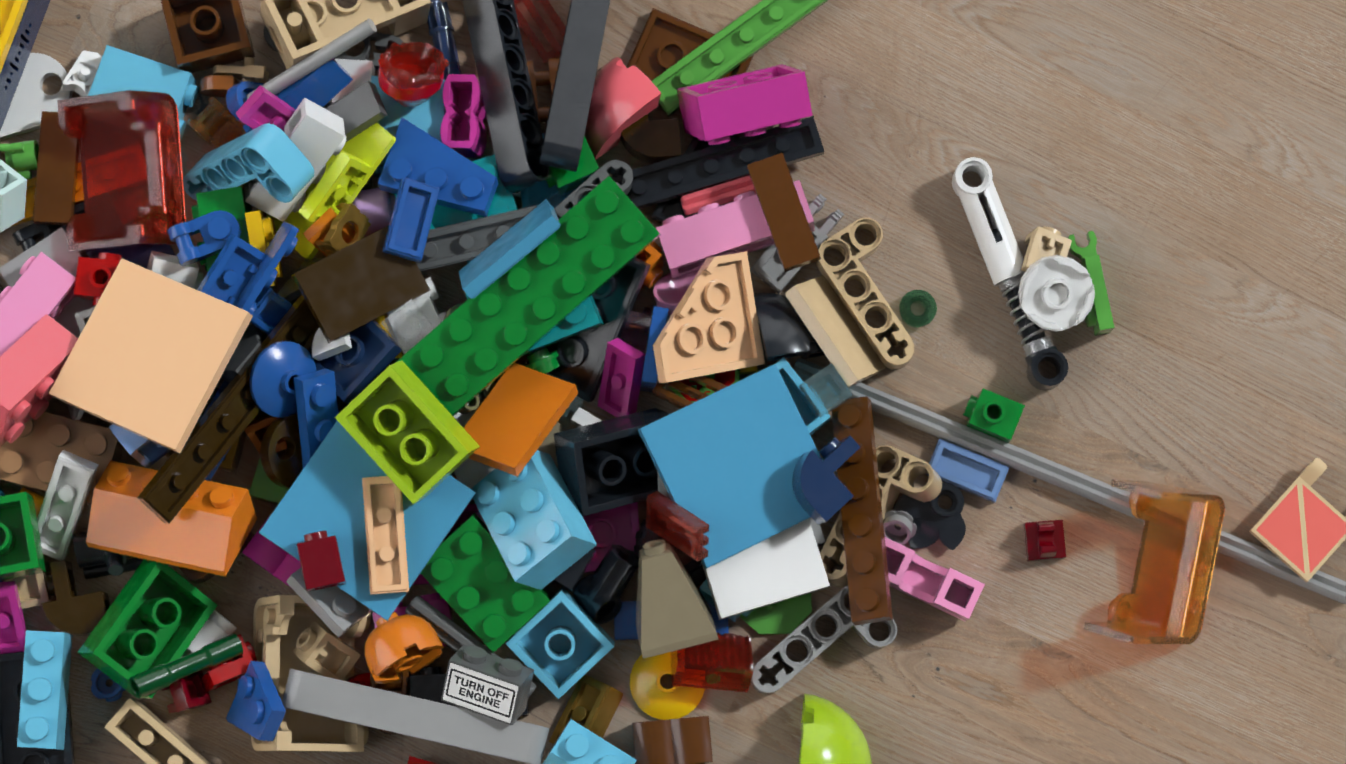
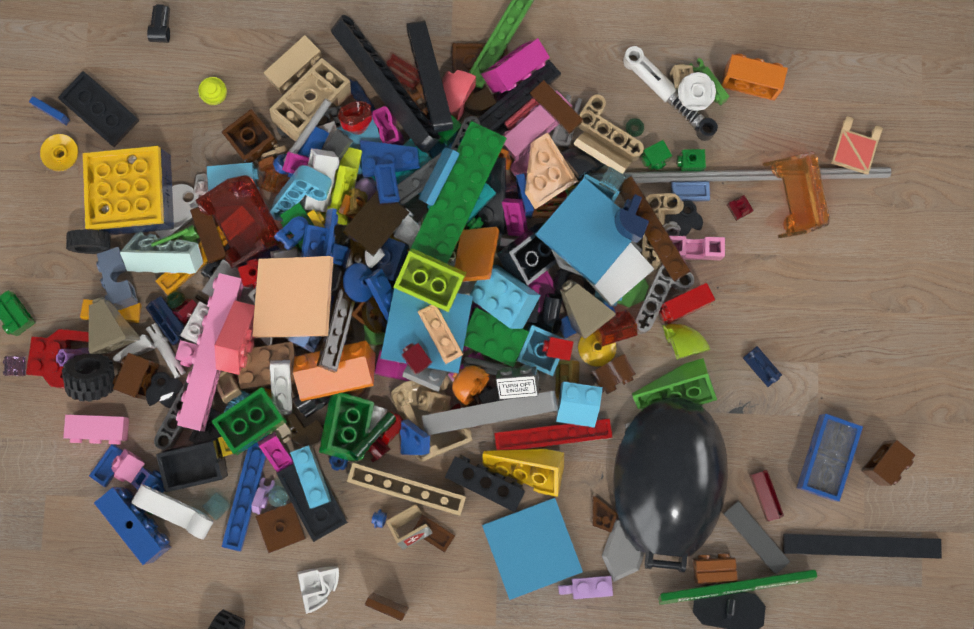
camera: 20 degrees left, 0 degrees up
(588, 654) = (558, 348): none -> red brick
(677, 525) = (571, 269): clear red tile -> none
(861, 674) = (686, 303): none -> red brick
(931, 378) = (656, 156): none -> green brick
(1176, 310) = (754, 77): none -> orange brick

